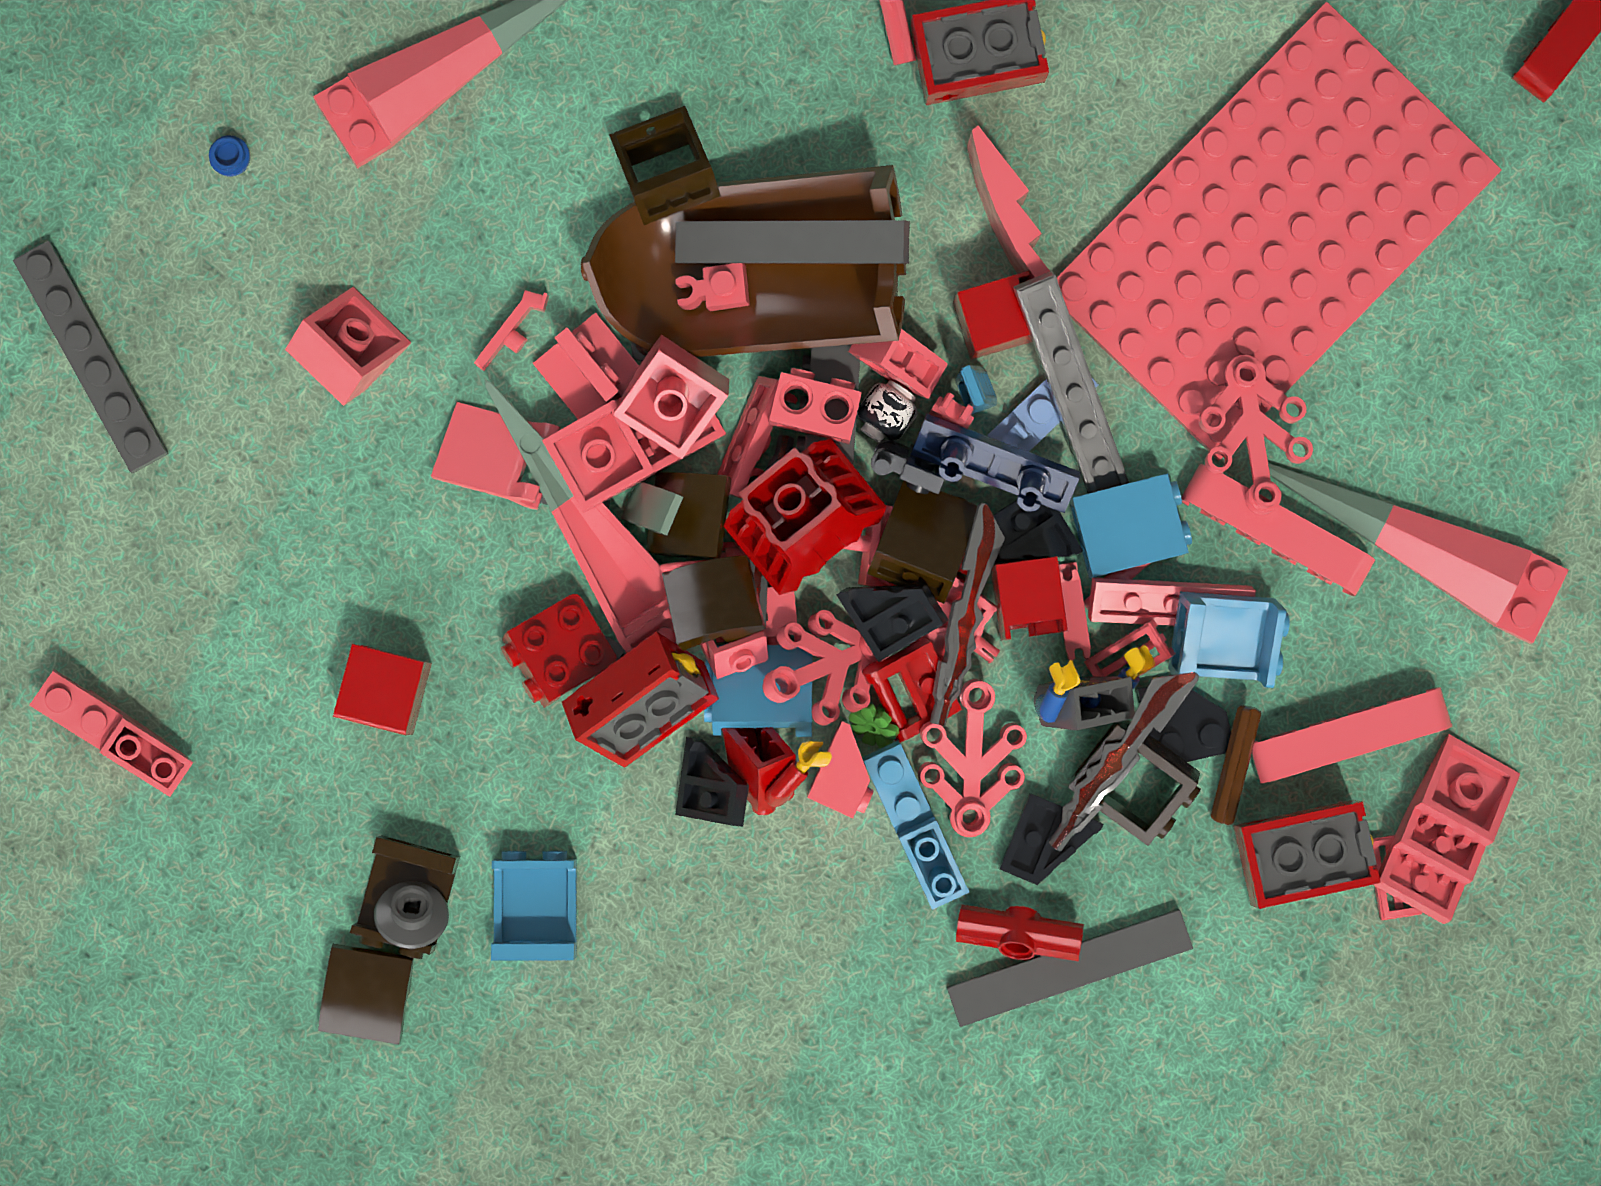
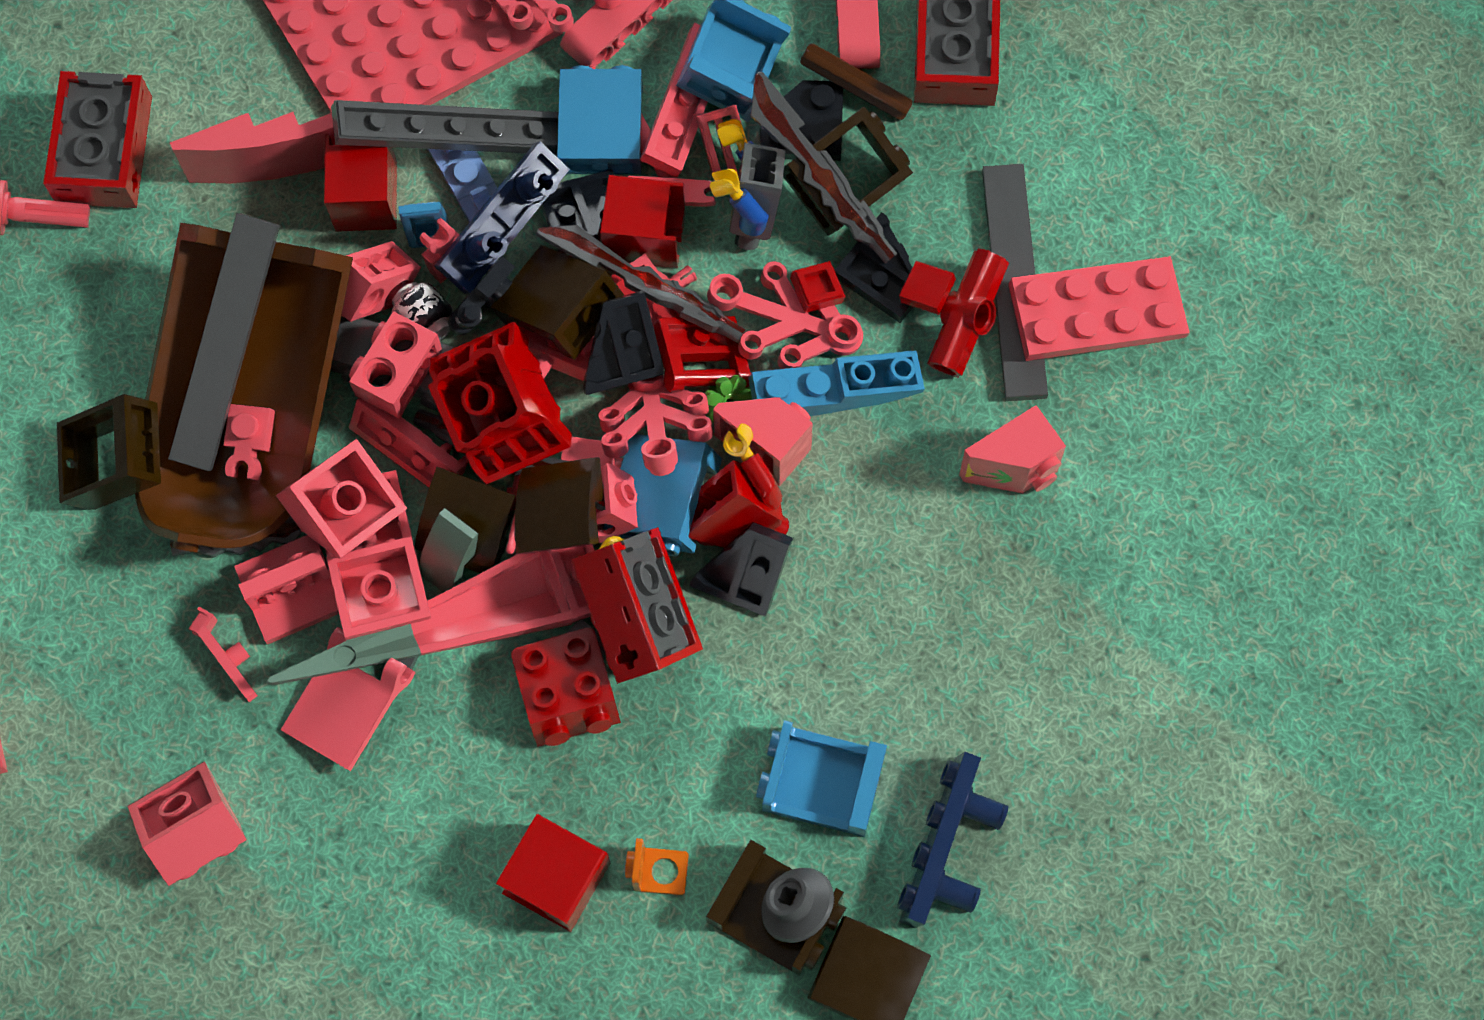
camera: 70 degrees left, 15 degrees down
(409, 764) = (640, 865): none -> orange bracket
(487, 1024) = (930, 857): none -> dark blue plate
(884, 1016) = (1016, 455): none -> coral slope
(1010, 781) = (817, 287): none -> red tile
(1032, 888) = (927, 287): none -> red tile
(1060, 1055) = (1098, 308): none -> coral plate

